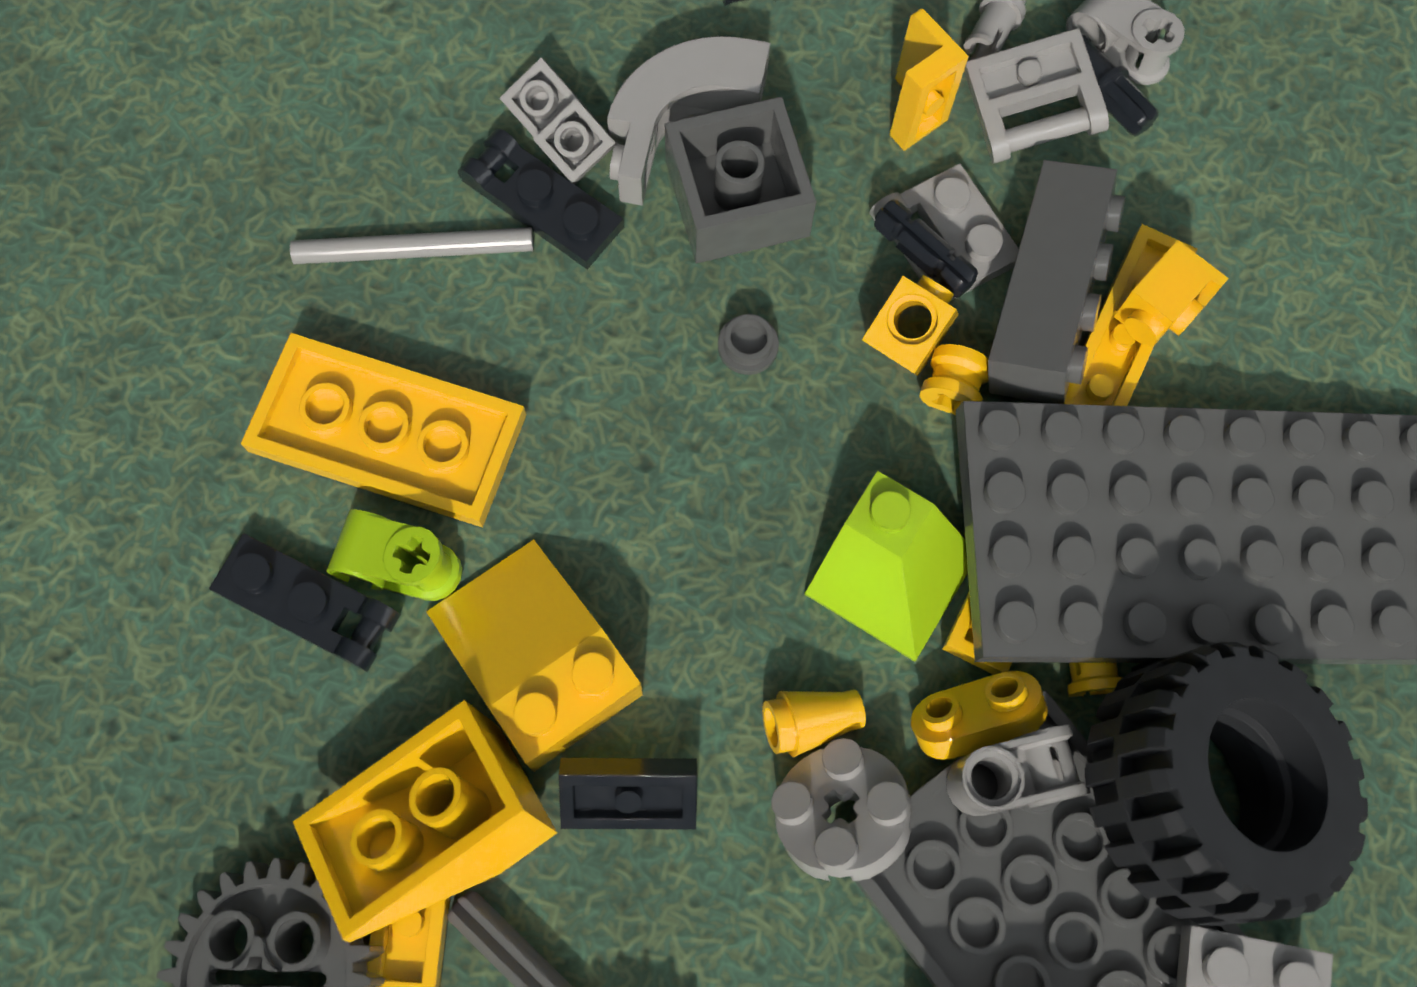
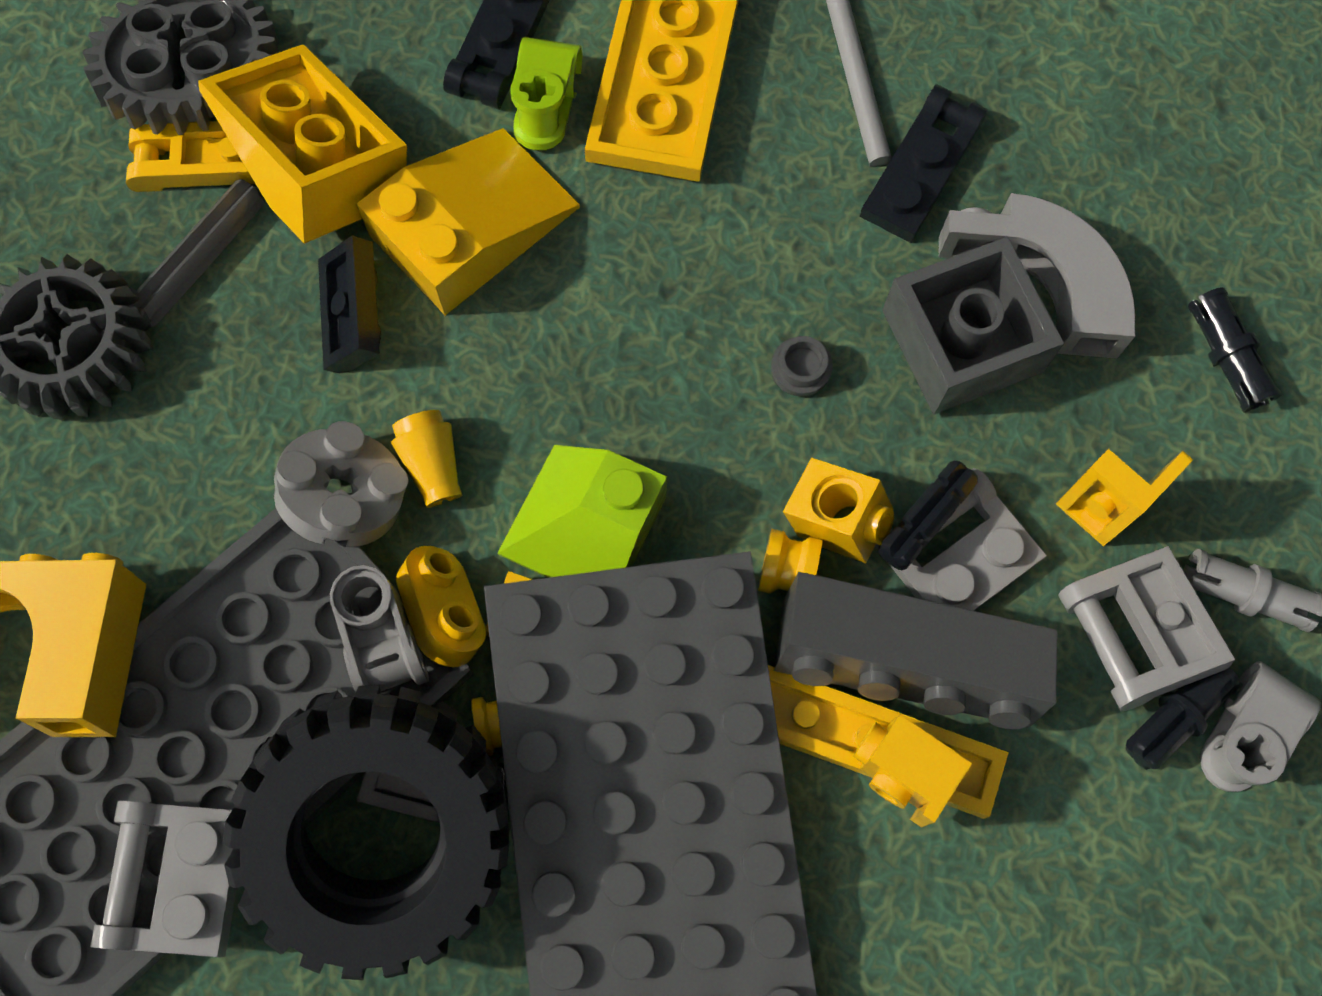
camera: 85 degrees right, 0 degrees up
(558, 121) = (1011, 163): light grey slope -> none

